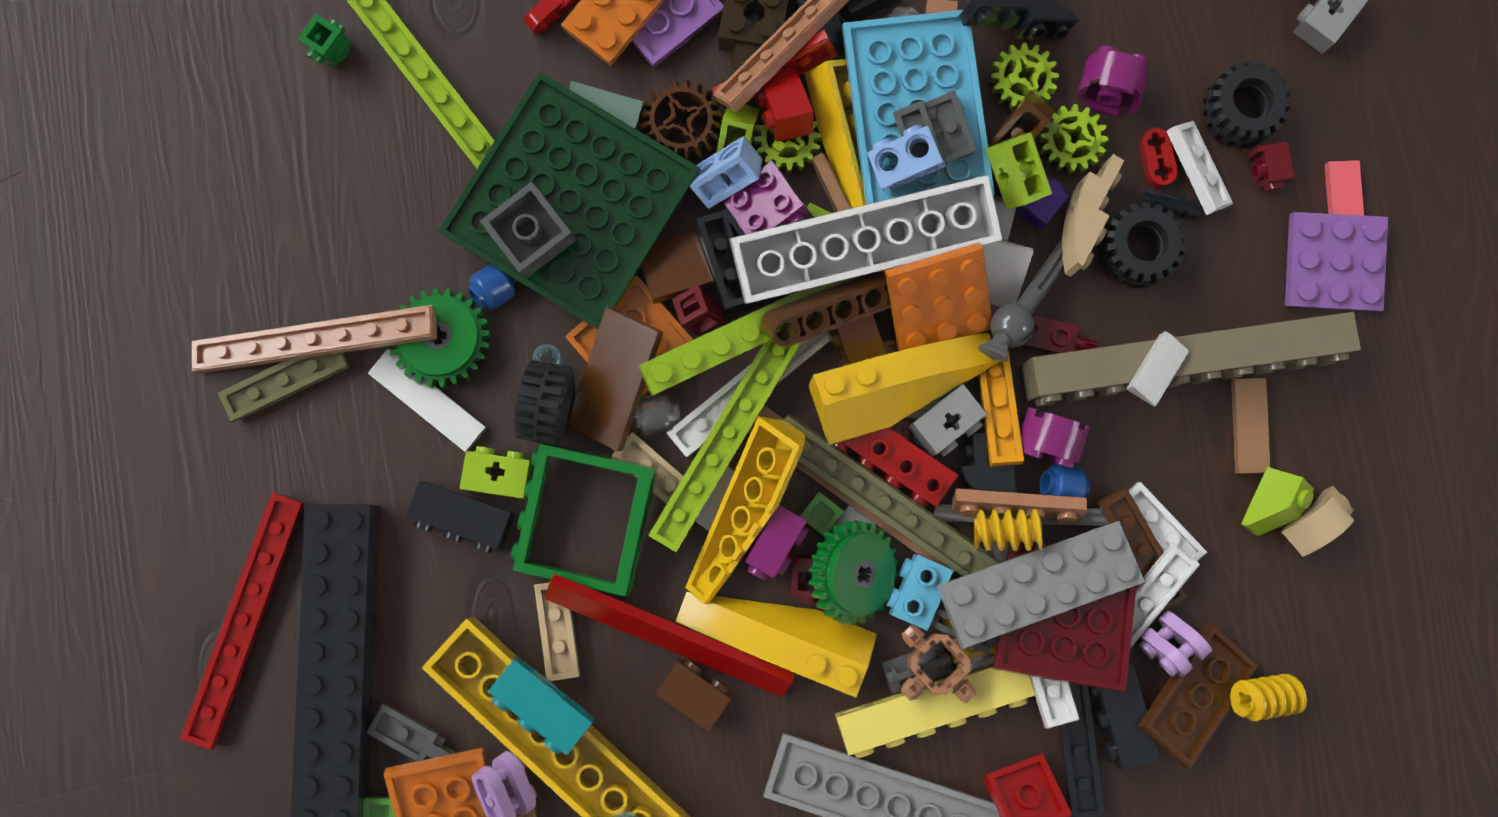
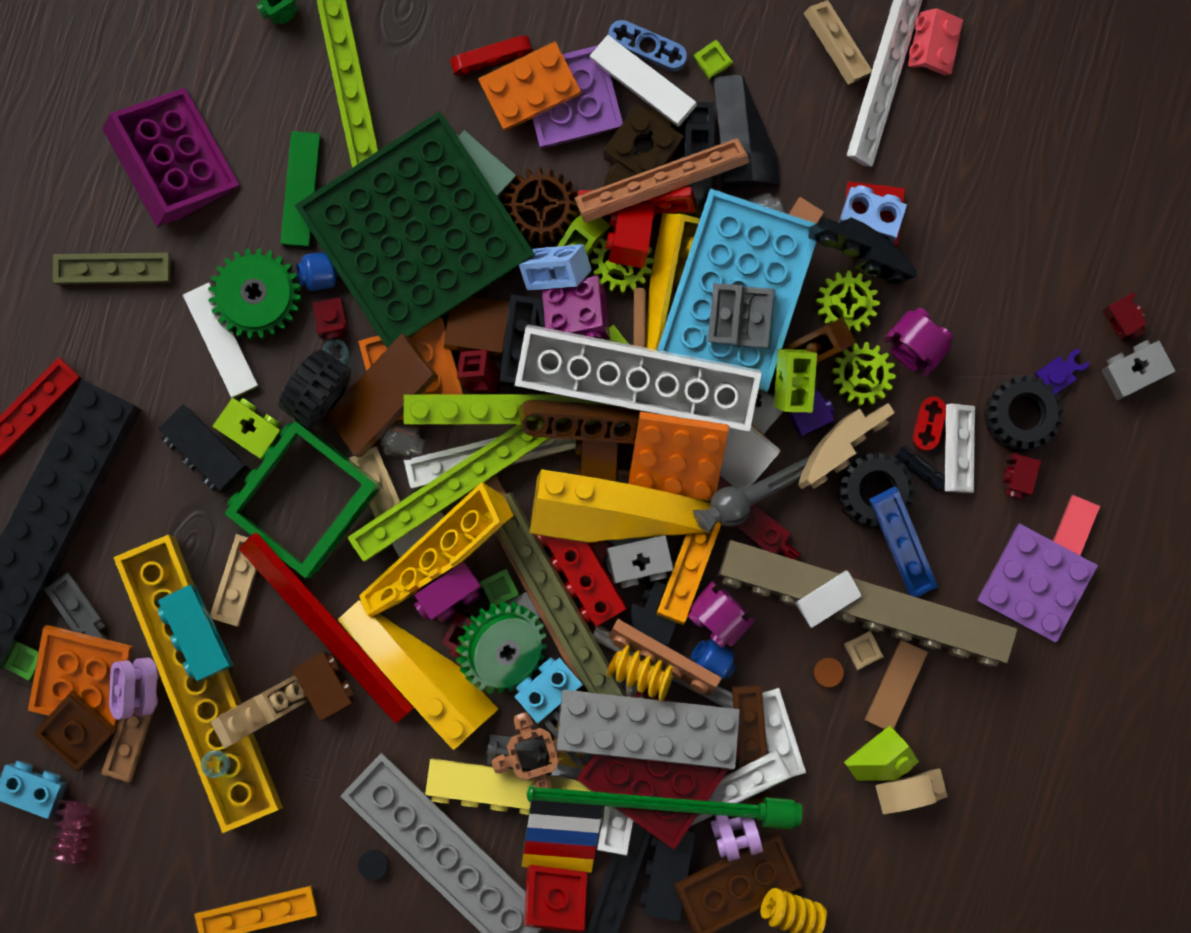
camera: 30 degrees right, 0 degrees up
(289, 242) = (169, 155): none -> magenta slope
(314, 339) = (152, 247): nougat tile -> none
(433, 209) = (299, 184): none -> green tile
(526, 328) = (330, 318): none -> dark red bracket
(528, 230) = (367, 241): dark grey brick -> none
(642, 754) = (259, 711): none -> tan slope
(908, 167) = (702, 334): light blue brick -> none
(1005, 717) = (567, 822): none -> flag
(1179, 443) = (828, 672): none -> dark orange tile
(1195, 281) = (903, 542): none -> blue tile
(1202, 406) = (863, 650): none -> tan tile
(1257, 47) = (1060, 373): none -> dark purple plate

